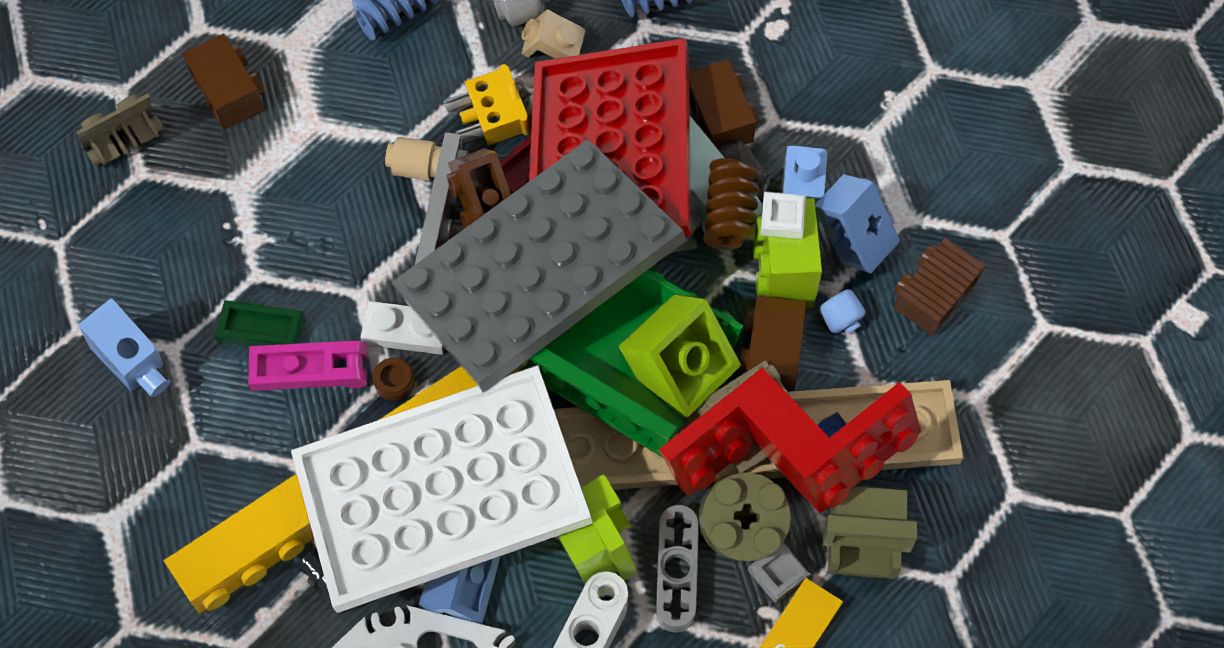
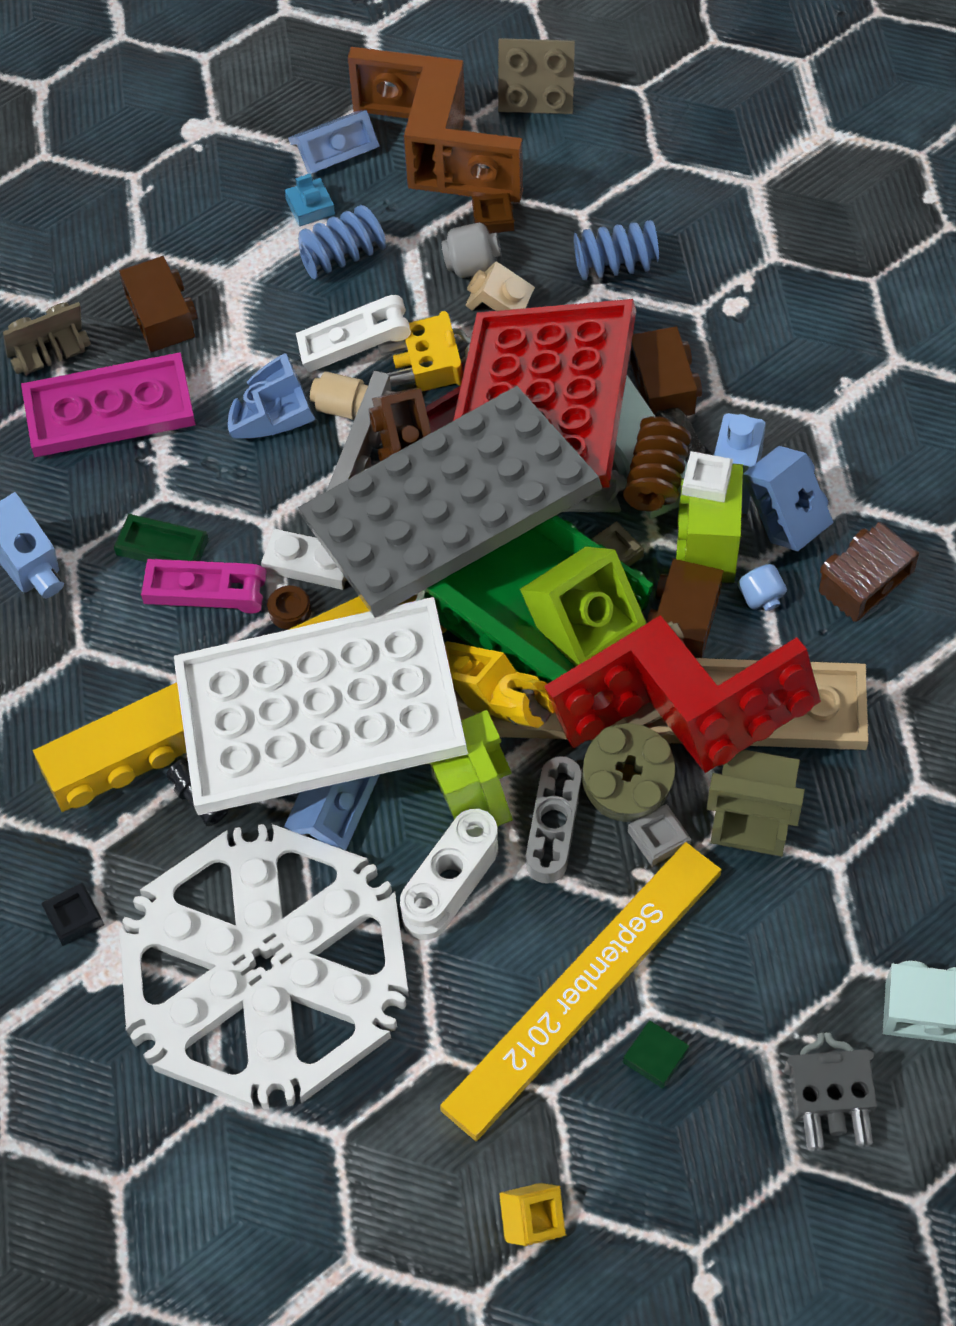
camera: 10 degrees right, 5 degrees down
(188, 190) = (107, 404): none -> dark pink plate
(347, 172) = (271, 403): none -> medium blue brick
(419, 94) = (353, 332): none -> white plate
(607, 448) = (492, 684): none -> yellow plate
(700, 281) = (619, 539): none -> dark tan tile

